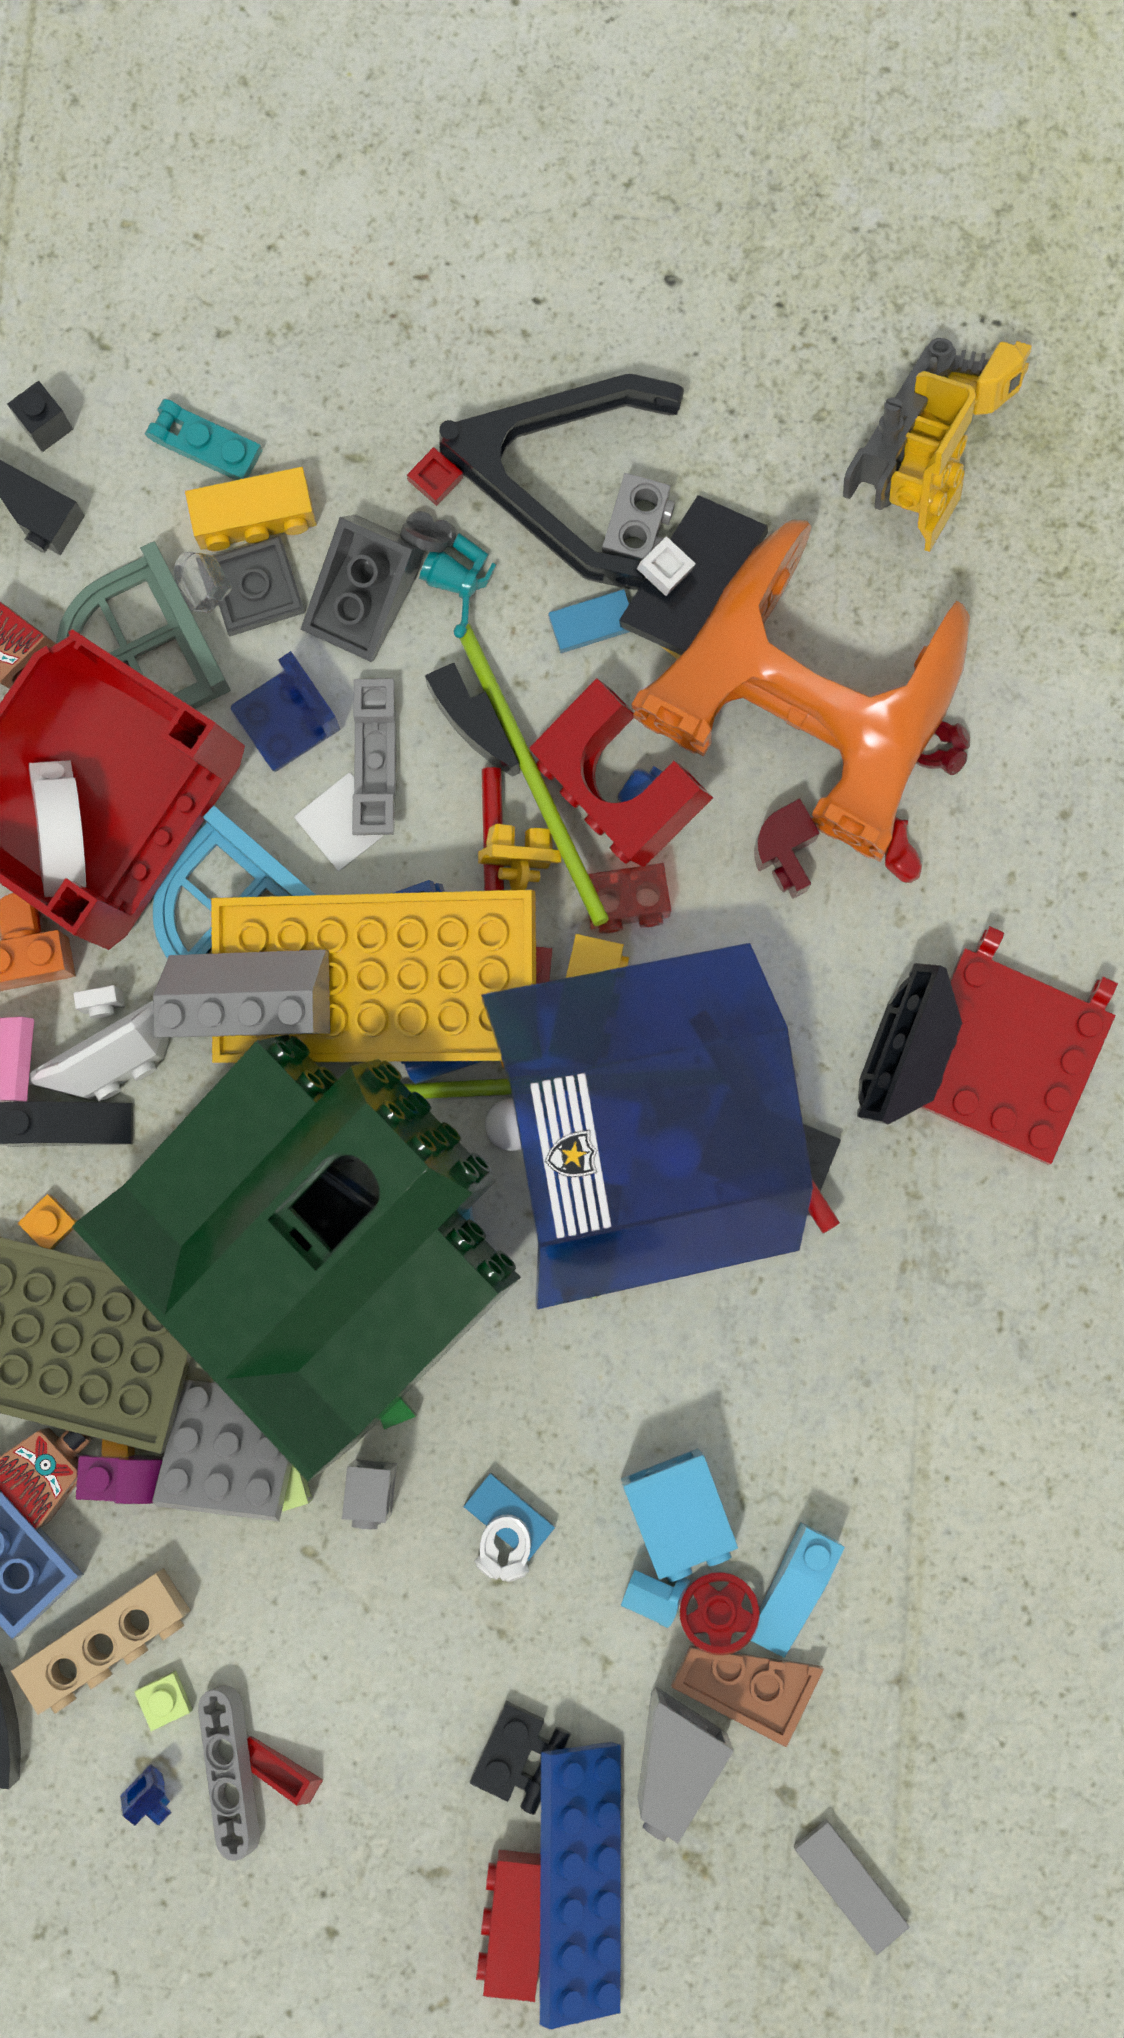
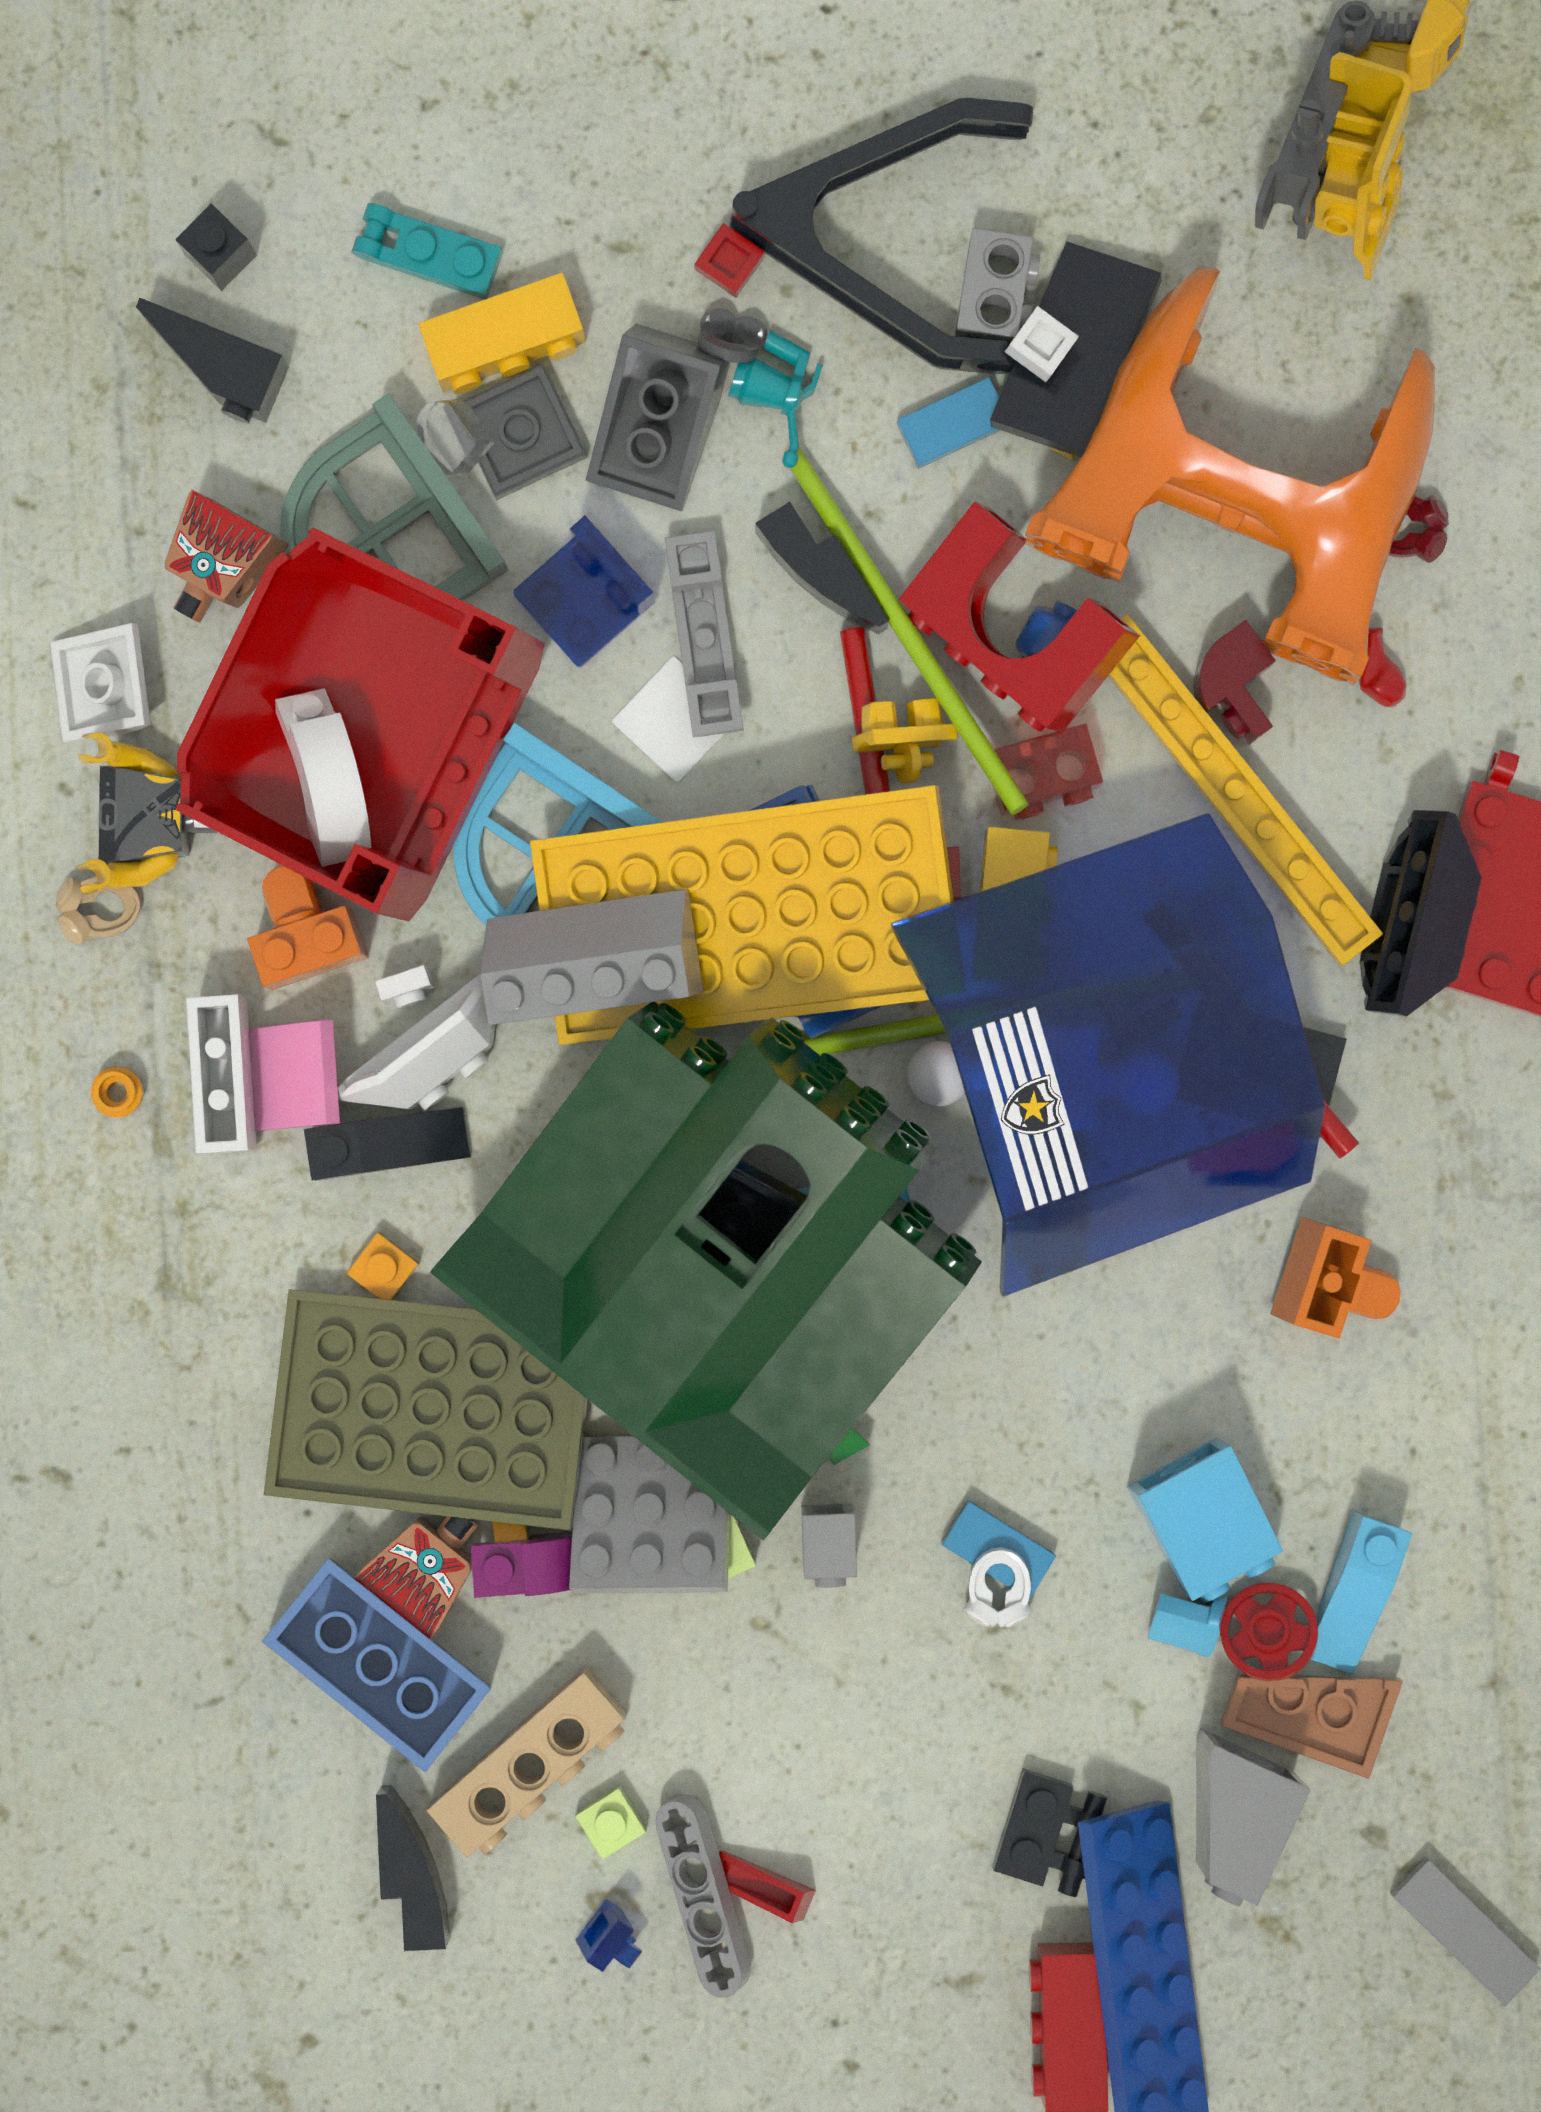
camera: 10 degrees left, 5 degrees up
(780, 940) = (1243, 801): none -> yellow plate
(803, 1331) = (1329, 1279): none -> orange brick

